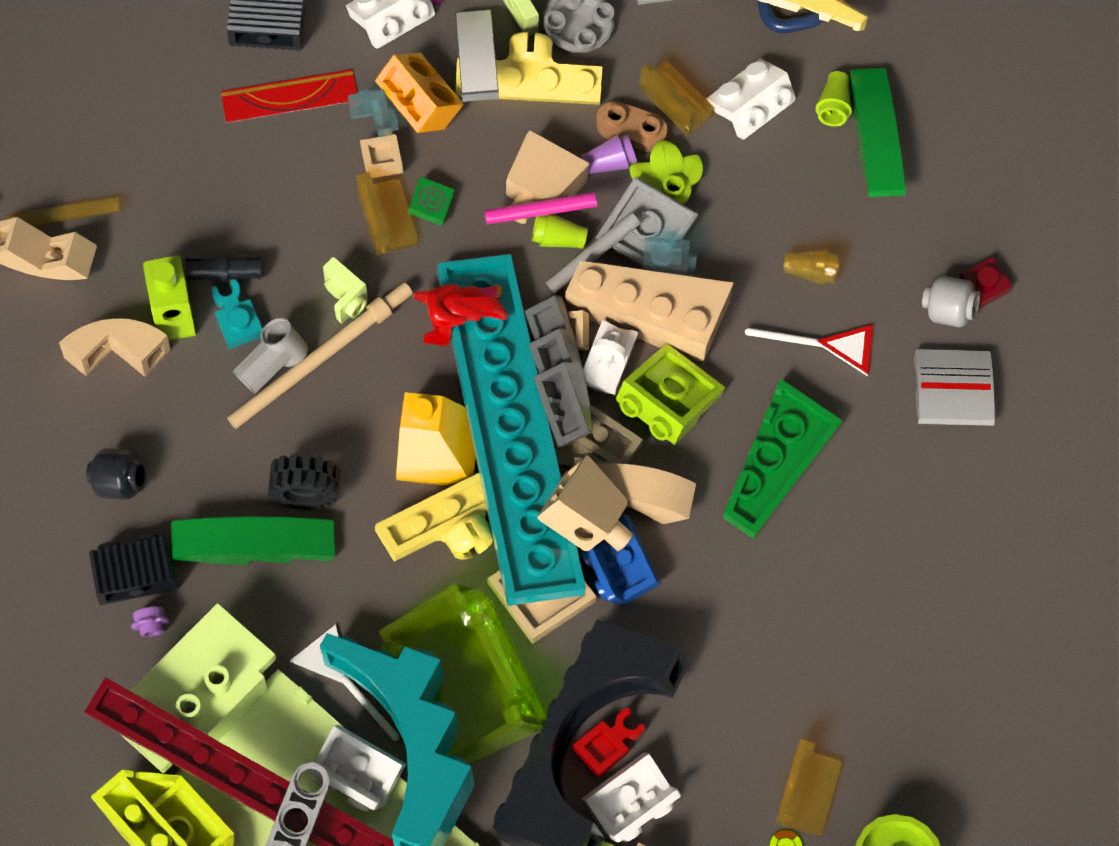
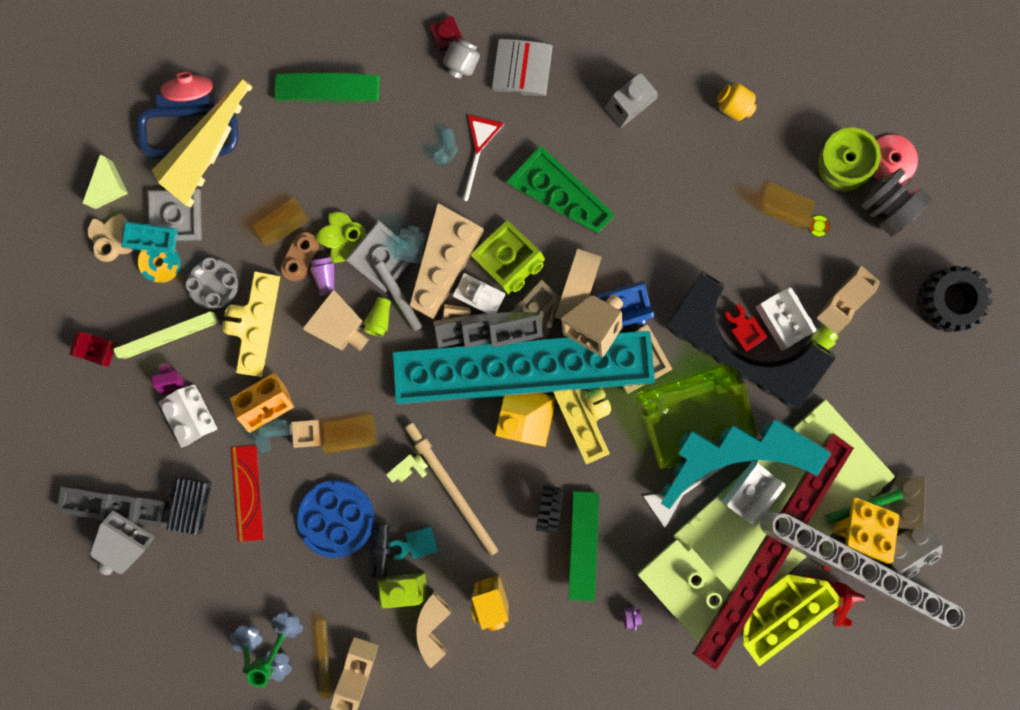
camera: 80 degrees left, 20 degrees up
(84, 112) = (274, 664): none -> sand blue plant
(116, 473) = (526, 633): black head -> none
(132, 569) = (596, 627): black brick -> none
(161, 396) = (489, 604): none -> yellow brick
(264, 209) = (335, 518): none -> blue tile
(279, 348) = (452, 524): light grey piece -> none
(430, 201) = (344, 402): green tile -> none
(454, 305) = (433, 395): red hair -> none
(477, 55) = (240, 359): white slope -> none
(540, 208) = (365, 337): dark pink bar -> none
(753, 97) = (287, 169): white bracket -> none
(814, 266) = (423, 147): clear yellow cone -> none
(815, 302) = (448, 150): none -> clear light blue arm
(834, 103) = (299, 113): lime cone -> none
(932, 539) = (631, 99): none -> light grey torso
(956, 693) = (736, 101): none -> yellow head

